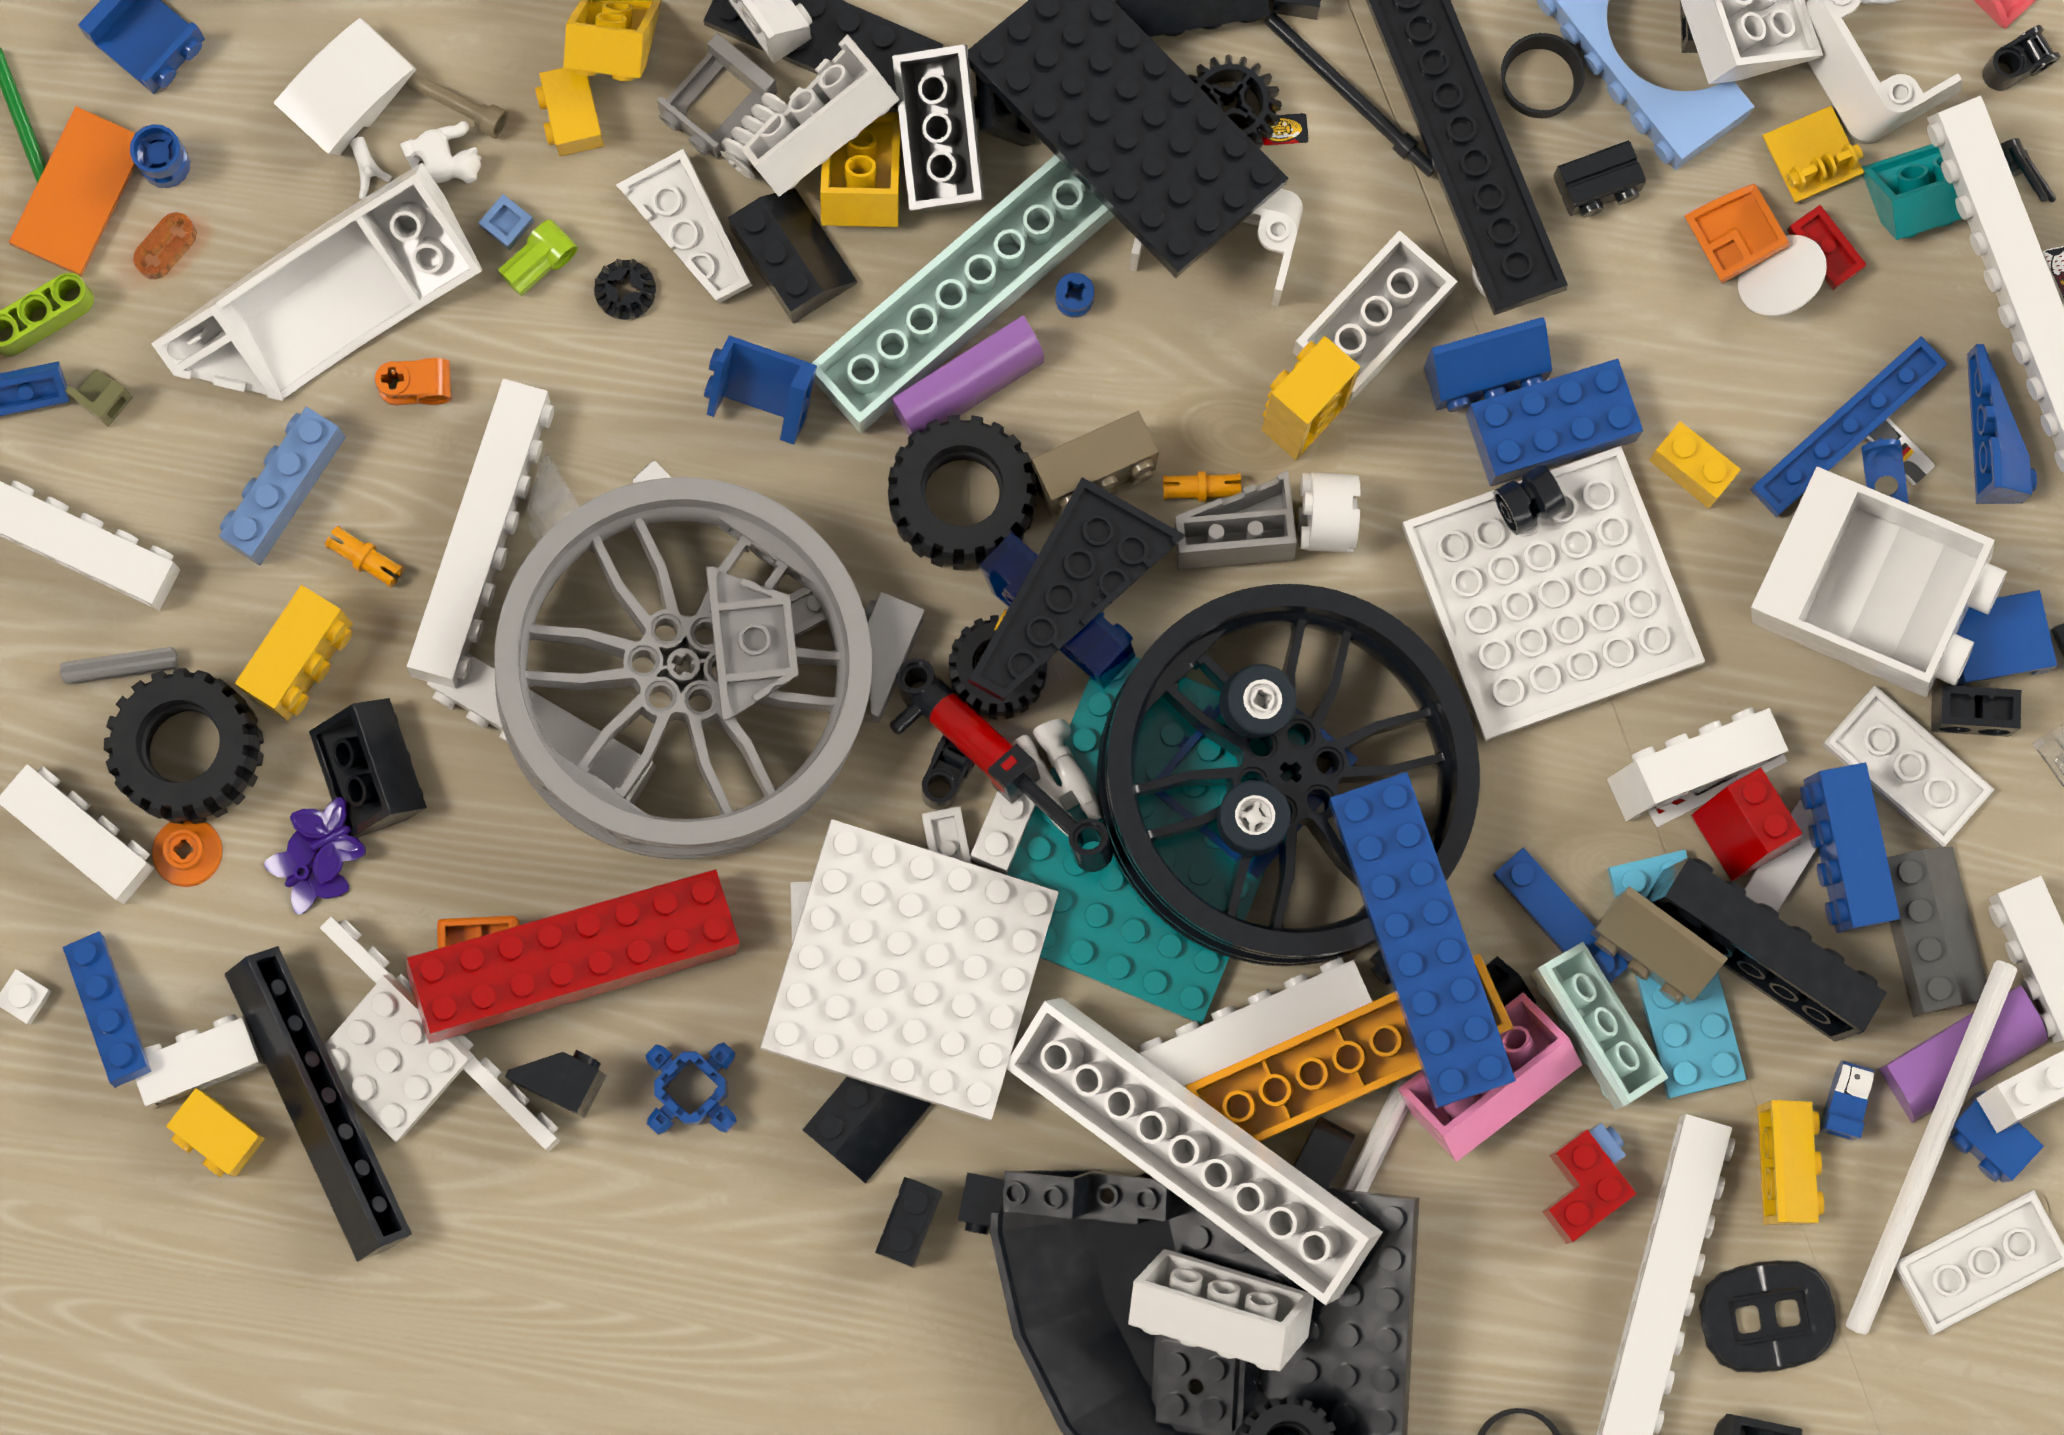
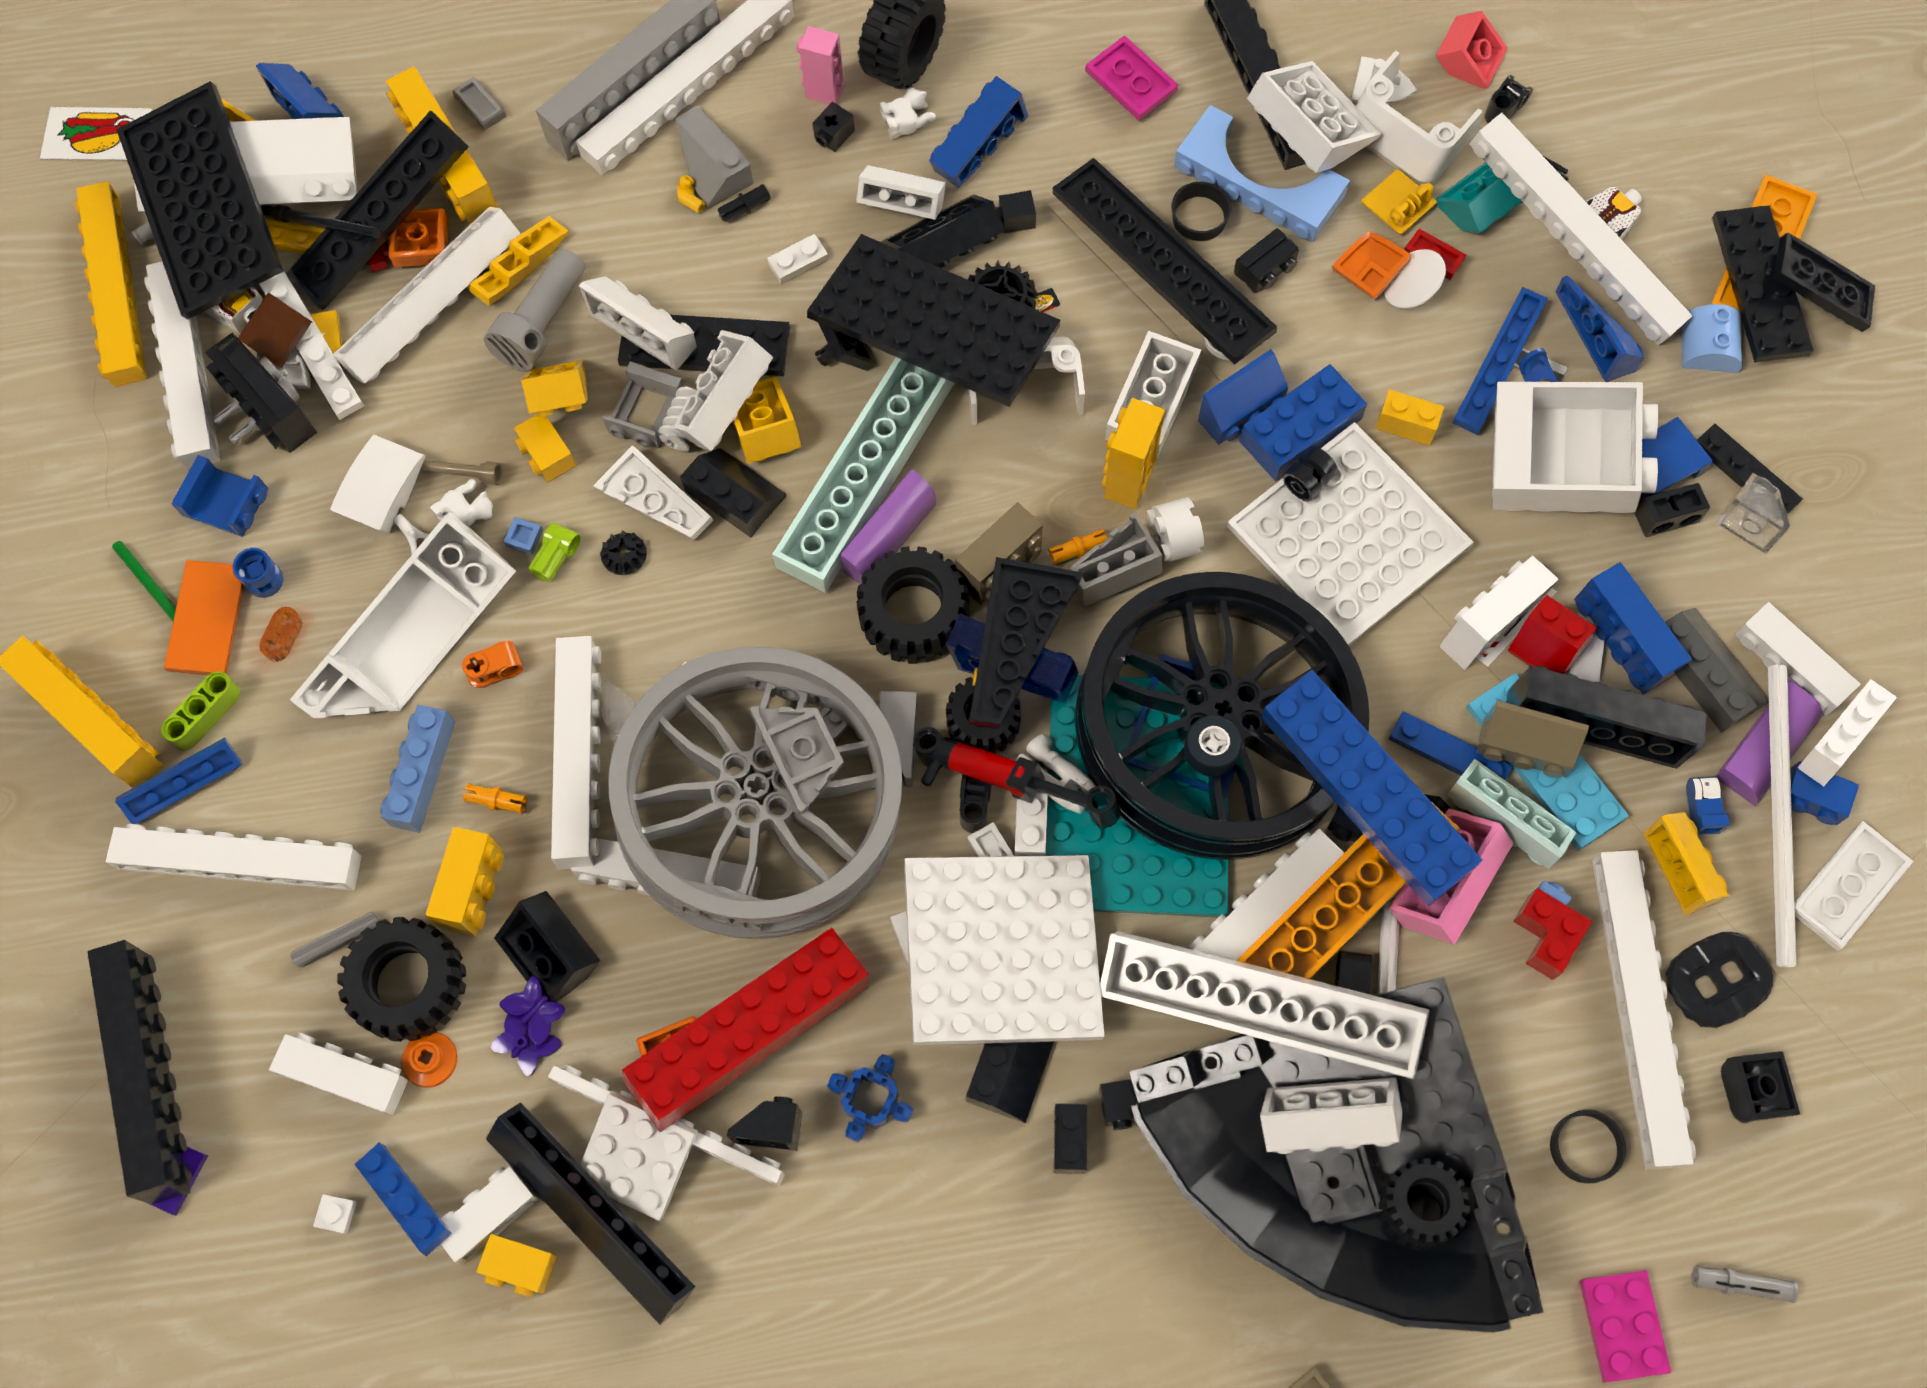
camera: 15 degrees left, 10 degrees down
(101, 397) = (265, 753): olive panel -> none
(763, 382) = (743, 578): blue panel -> none
(938, 129) = (808, 370): dark grey slope -> none
(1076, 302) = (941, 458): blue wheel -> none
(1243, 706) = (1180, 674): black wheel -> none
(1404, 144) = (1126, 283): black bar -> none
(1909, 767) = (1658, 569): white tile -> none

